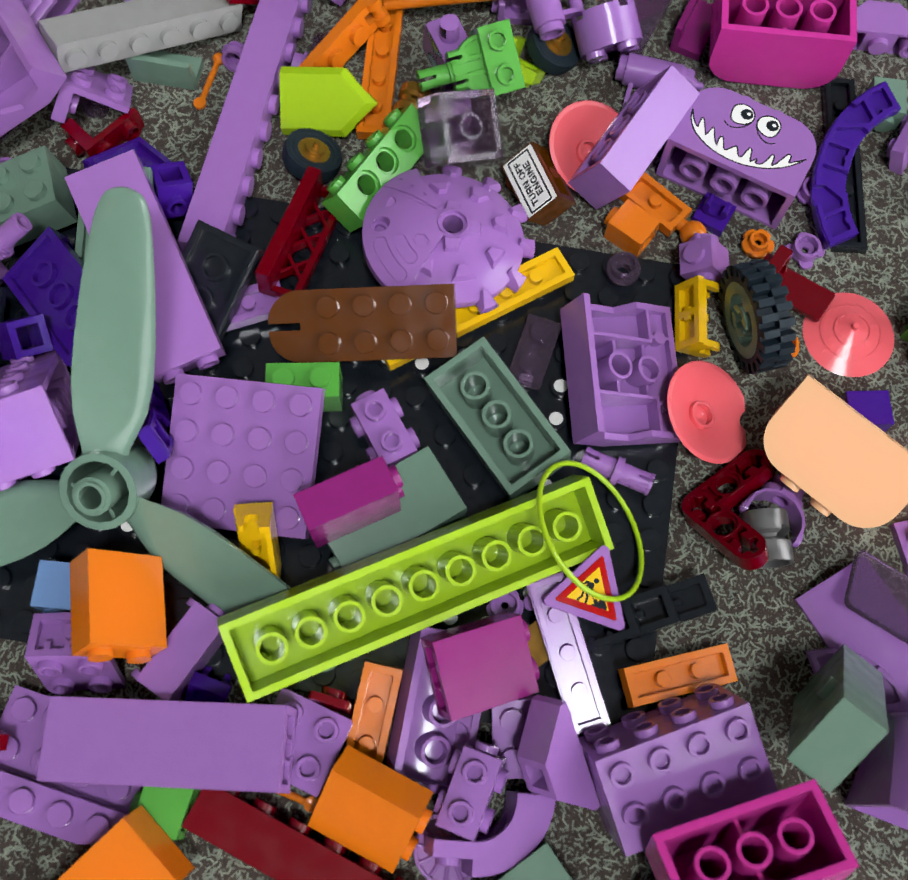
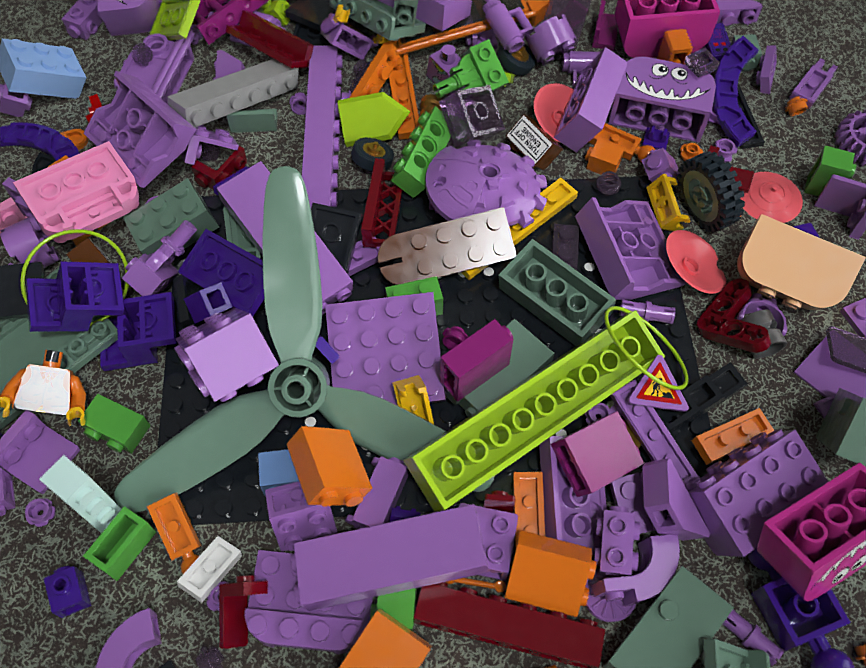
camera: 10 degrees left, 10 degrees down
(200, 102) = (282, 137): orange hinge -> none
(332, 17) = (360, 67): none -> clear purple plate
(345, 451) = (453, 336): none -> magenta plate
(380, 423) = (474, 312): medium lavender brick -> none
(779, 82) = (675, 46): none -> orange brick
(804, 117) = (701, 62): none -> clear purple plate
(850, 81) = (719, 42): none -> dark purple tile

